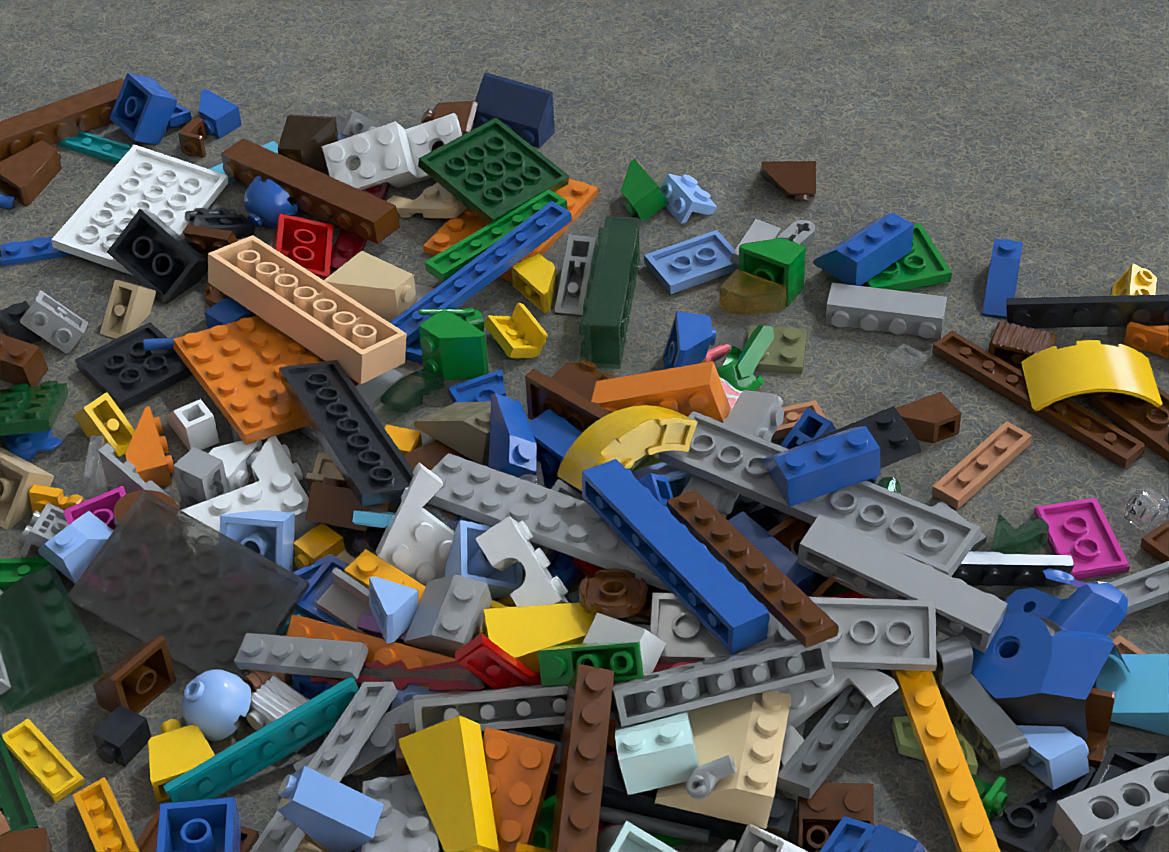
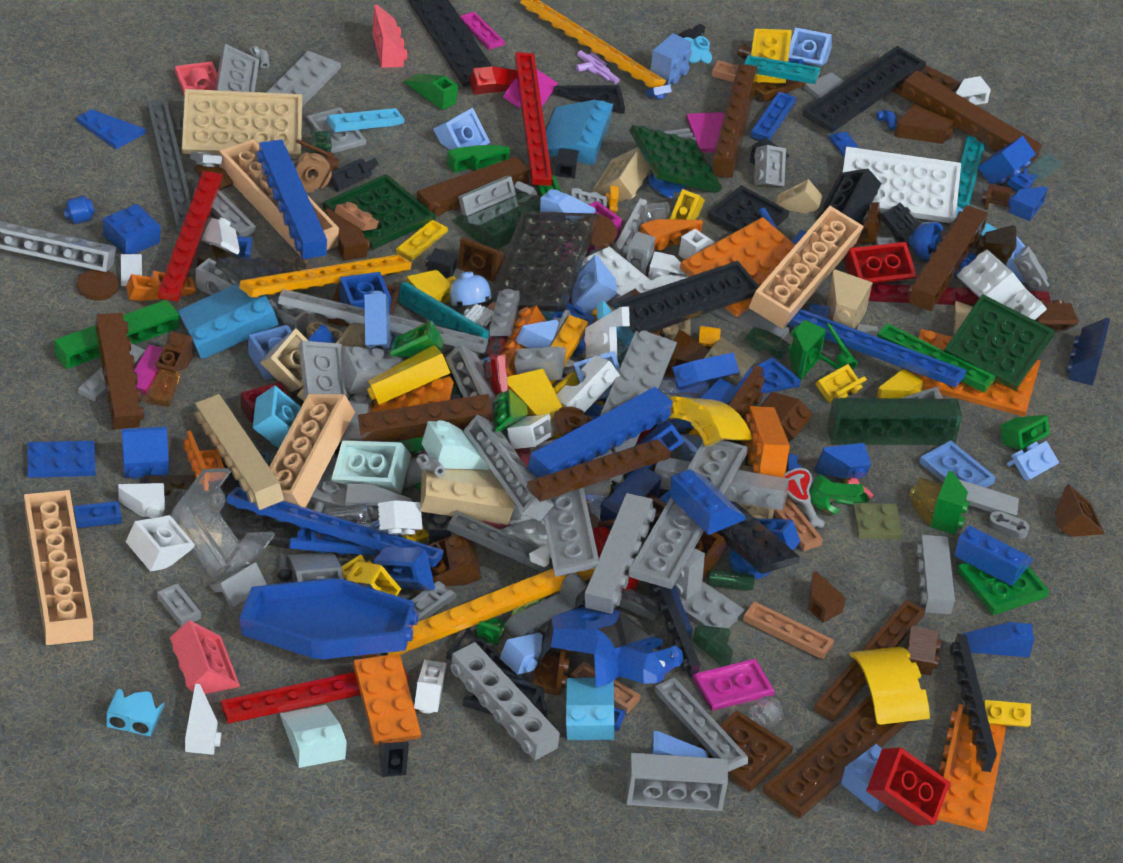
camera: 70 degrees right, 0 degrees up
(371, 765) = (416, 340): none -> green slope

